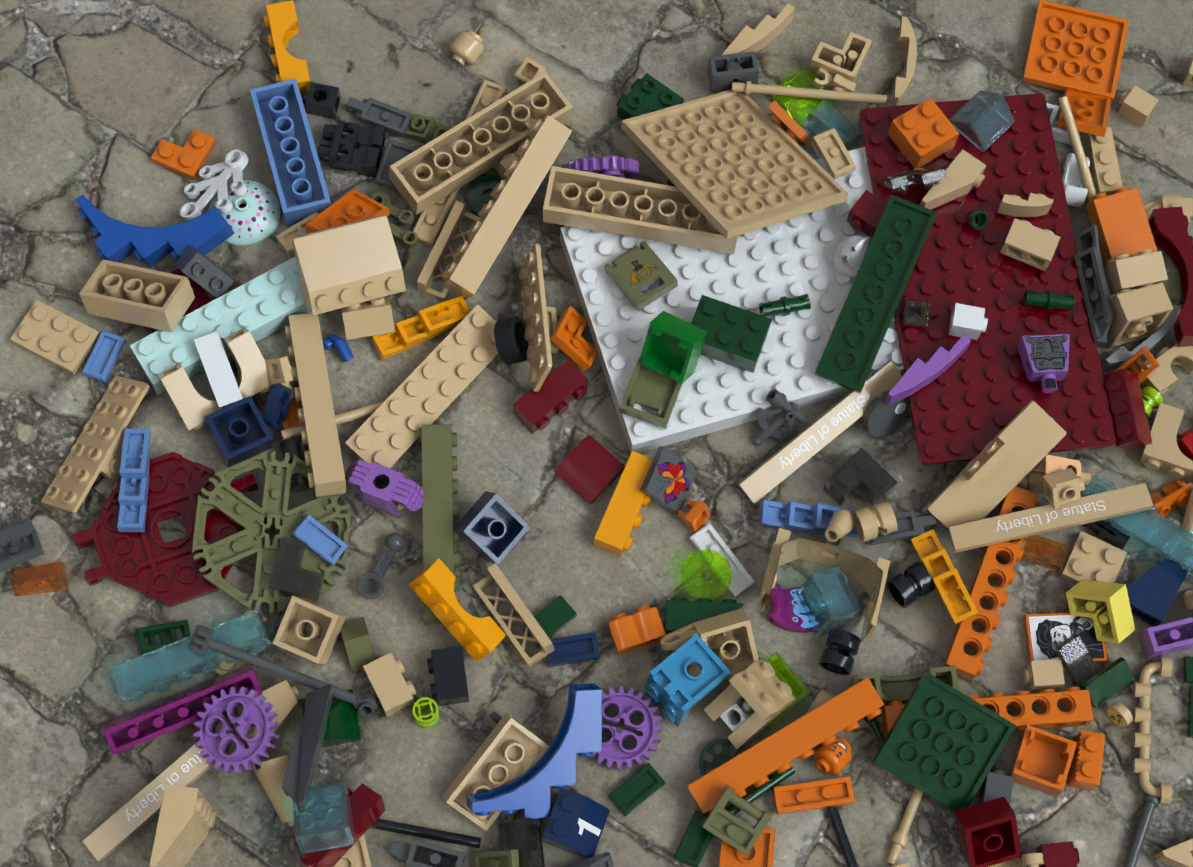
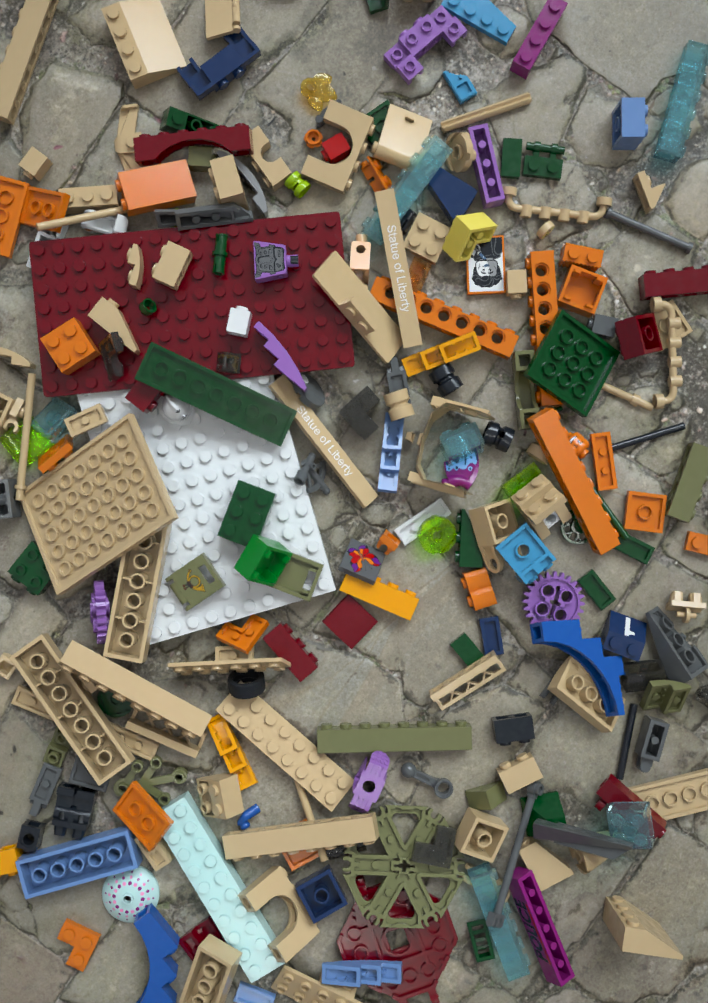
camera: 90 degrees left, 20 degrees up
(149, 800) = (591, 928): tan tile -> none
(204, 271) = (188, 928): dark grey brick -> none
(217, 745) = (563, 890): medium lavender gear -> none
(218, 369) = (274, 914): white tile -> none
(234, 164) = (92, 907): white plant -> none
(277, 406) = (303, 867): dark blue beam -> none
(280, 372) = (276, 865): tan plate -> none
(320, 540) = (410, 828): medium blue tile -> none
(348, 265) = (187, 818): tan slope -> none
(425, 717) = (541, 742): lime wheel -> none
(436, 590) = (454, 743): light orange arch -> none
(491, 527) = (401, 699): dark blue brick -> none
(732, 828) = (632, 524): olive plate -> none
(785, 305) = (222, 467): dark green pin -> none
(839, 525) = (402, 432): tan cone -> none
(983, 119) = (55, 295): clear light blue slope -> none
(1062, 487) = (377, 257): tan brick -> none
(1077, 660) = (507, 258): clear smoke slope -> none
(1108, 681) = (520, 236): dark green tile -> none
(1127, 409) = (309, 200): dark red brick -> none
(1135, 270) = (194, 182): tan brick -> none
(1137, 357) = (280, 202): orange slope -> none

